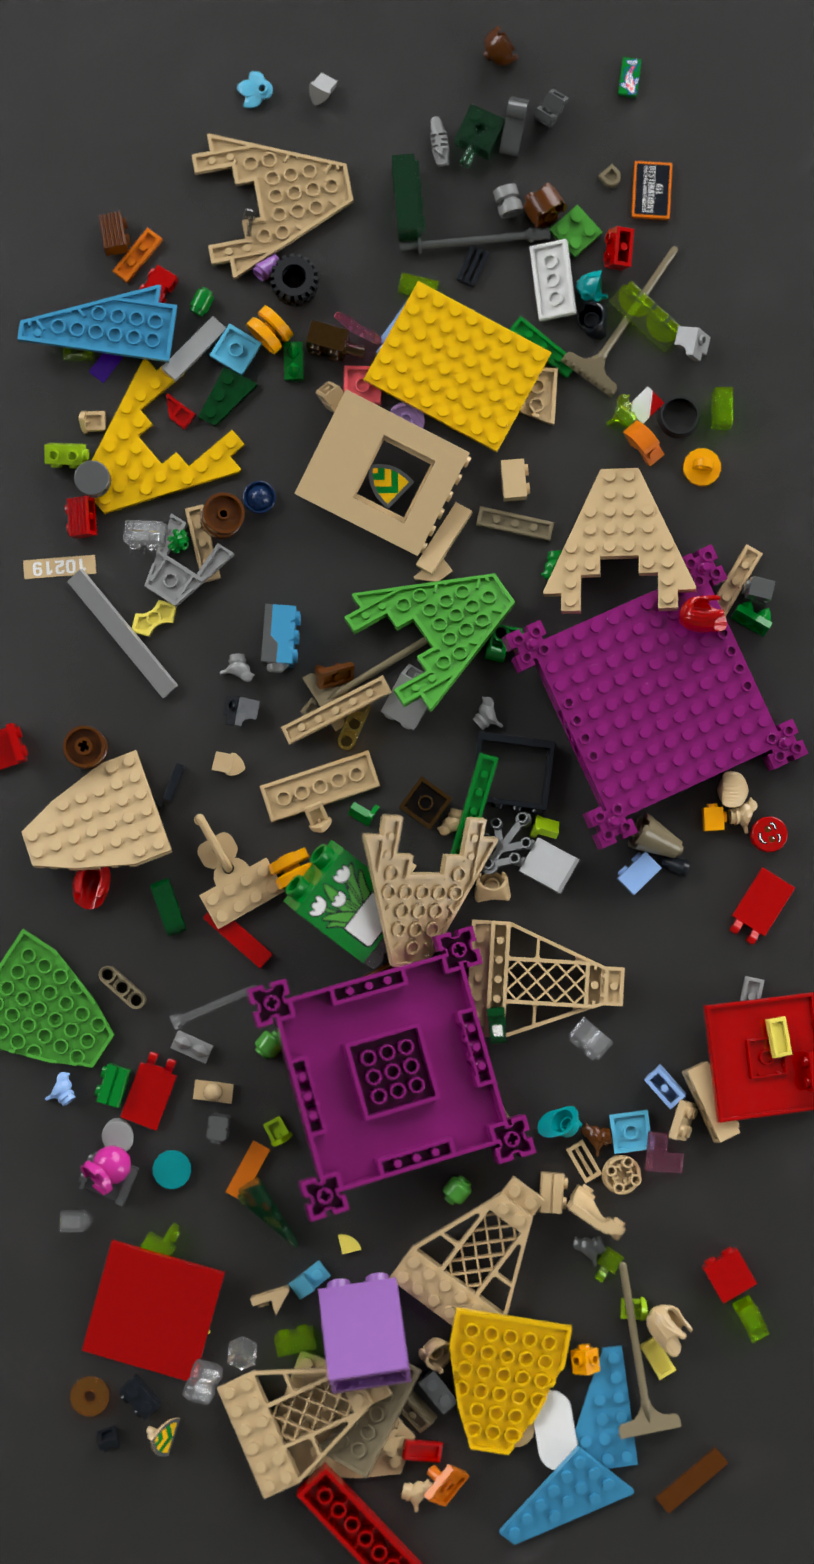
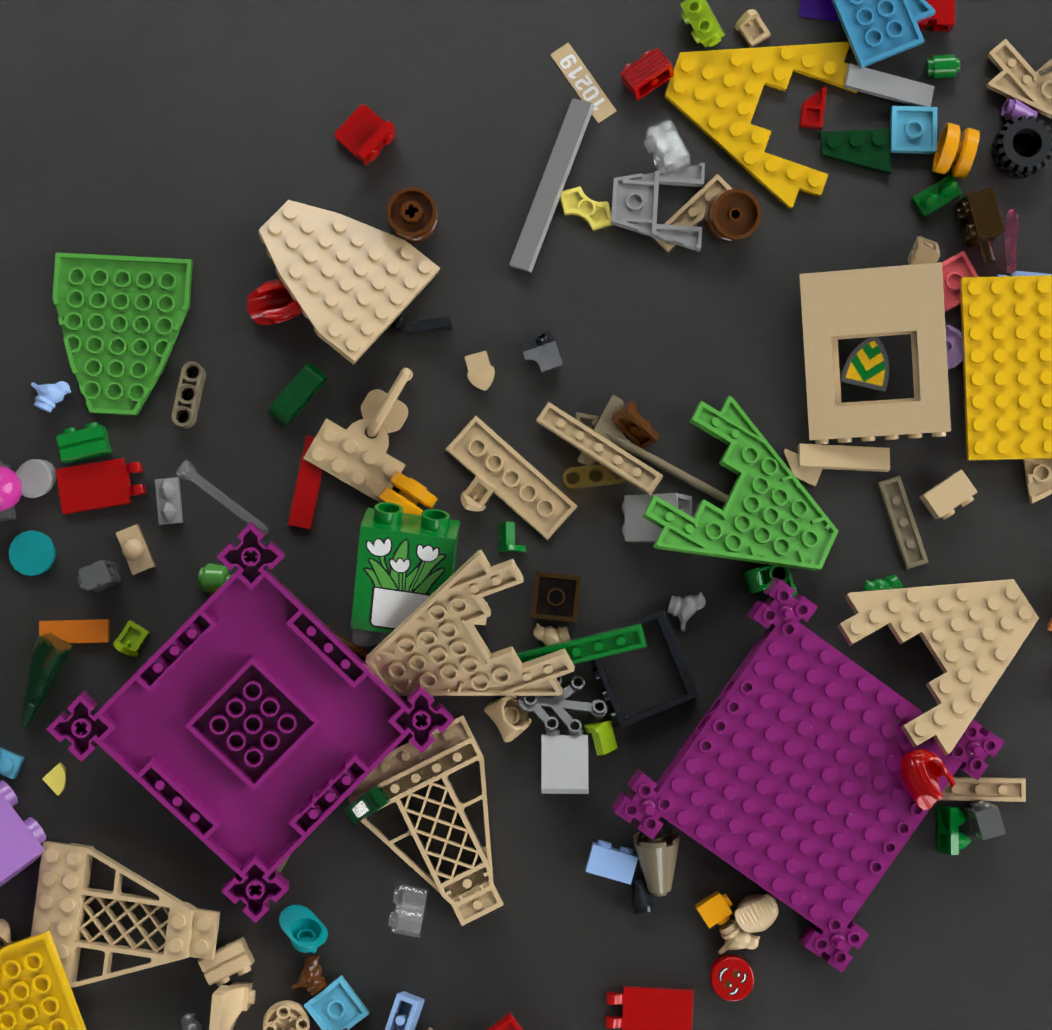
camera: 65 degrees right, 0 degrees up
(92, 479) = (692, 61): dark grey head -> none
(178, 541) = (680, 186): green plant -> none
(238, 667) = (585, 323): light grey animal -> none
(259, 496) = (774, 242): dark blue hat -> none
(280, 637) = (641, 347): dark azure piece -> none
(457, 1190) = (173, 860): bright green head -> none
(575, 1146) = (288, 958): tan tile -> none

